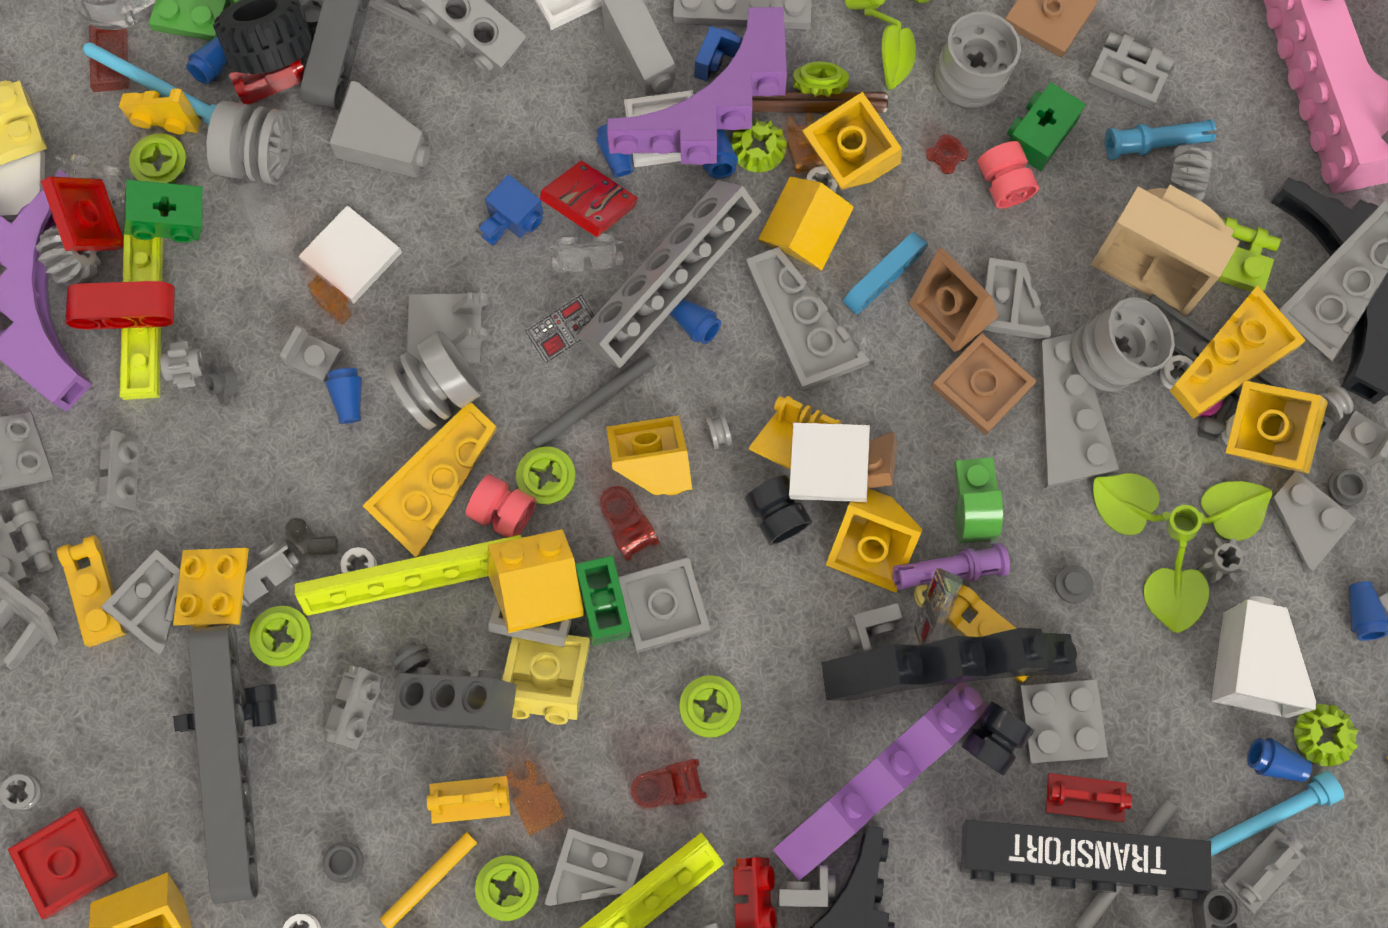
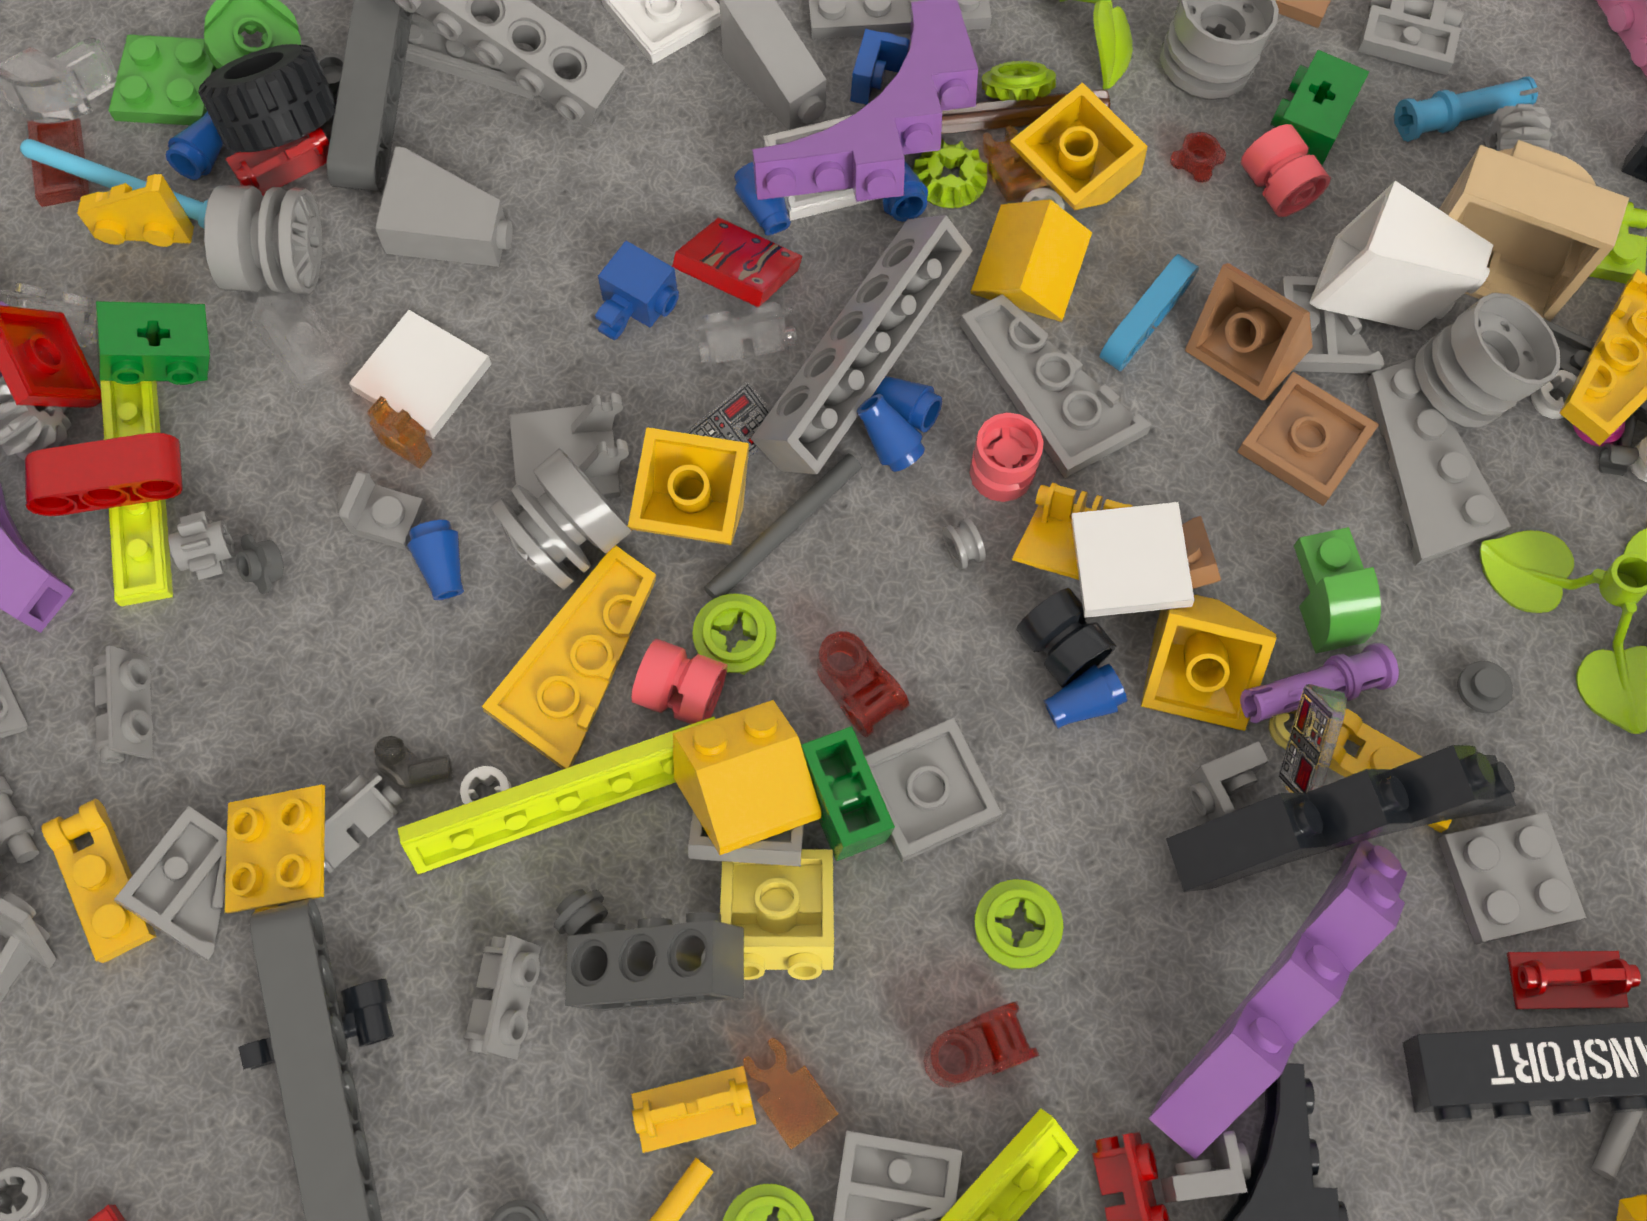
camera: 10 degrees left, 5 degrees down
(147, 151) = (122, 275): lime gear -> none
(275, 620) = (373, 886): lime gear -> none
(528, 367) = (689, 486): none -> yellow slope
(651, 454) = (881, 585): yellow slope -> none
(678, 344) = (891, 435): none -> blue cone
(758, 372) = (1006, 456): none -> coral wheel
(786, 554) = (1087, 696): none -> blue cone
(997, 738) = (1434, 911): black wheel -> none
(1073, 262) = (1401, 263): none -> white slope

